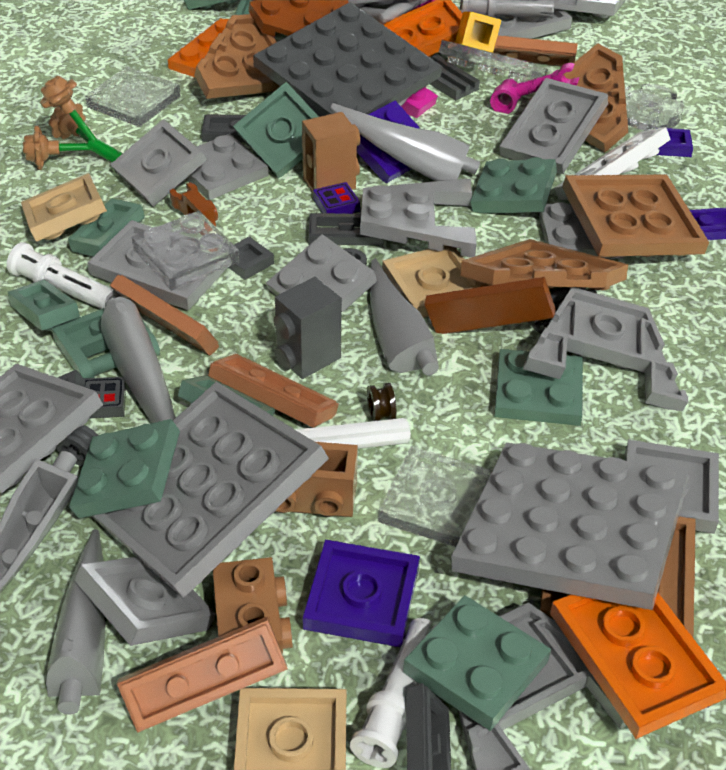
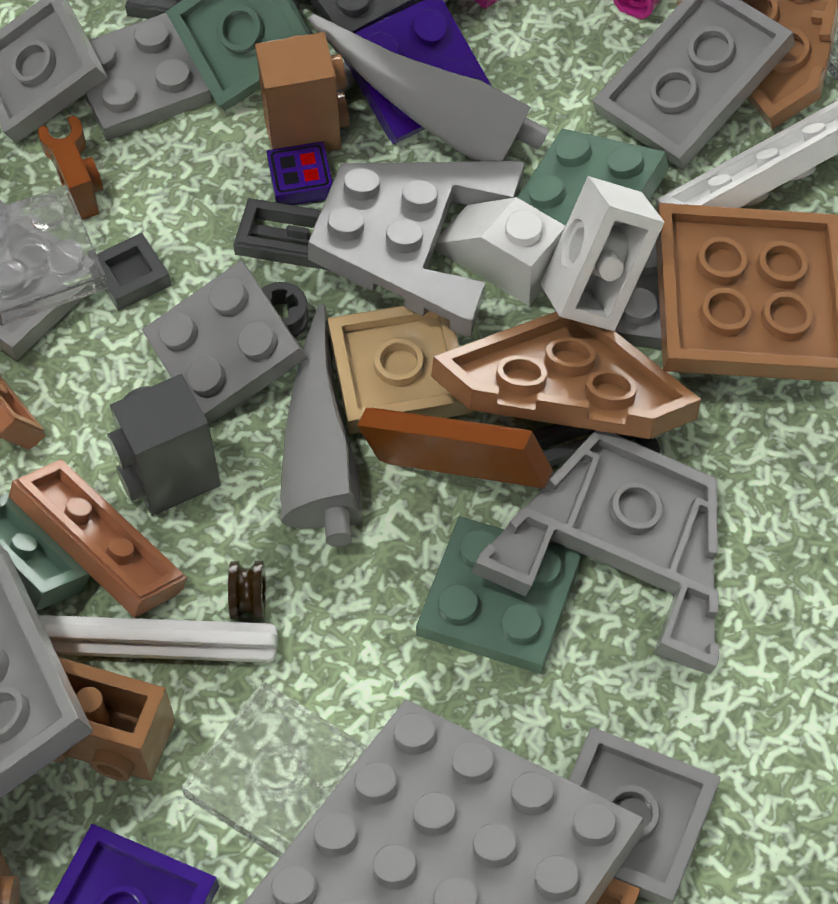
camera: 15 degrees right, 15 degrees up
(481, 208) = (503, 244): none -> white slope
(542, 201) = (601, 253): none -> white brick

